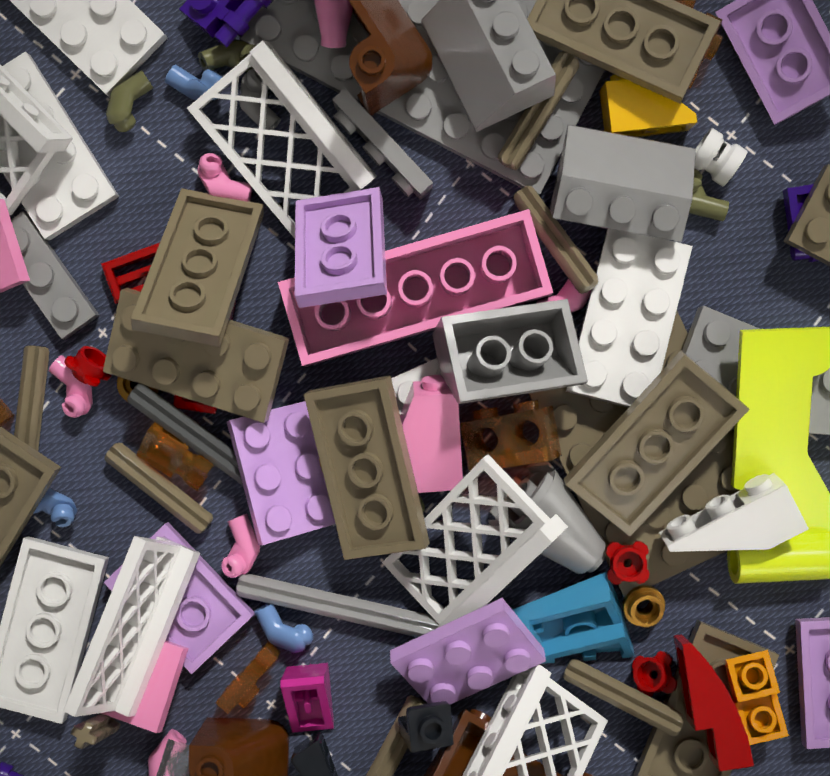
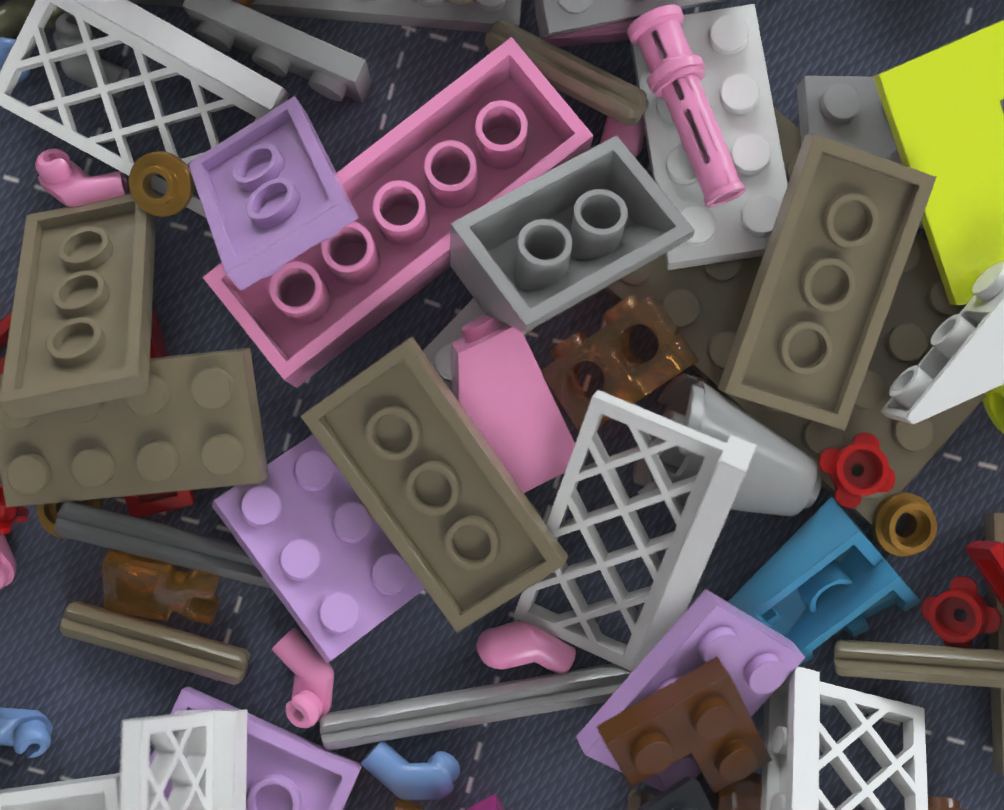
camera: 20 degrees left, 5 degrees down
(285, 205) = (178, 179): none -> pearl gold plate
(381, 581) = (523, 644): none -> bright pink arm
(461, 667) = (692, 716): none -> reddish brown plate
(620, 277) = (677, 79): none -> bright pink pin

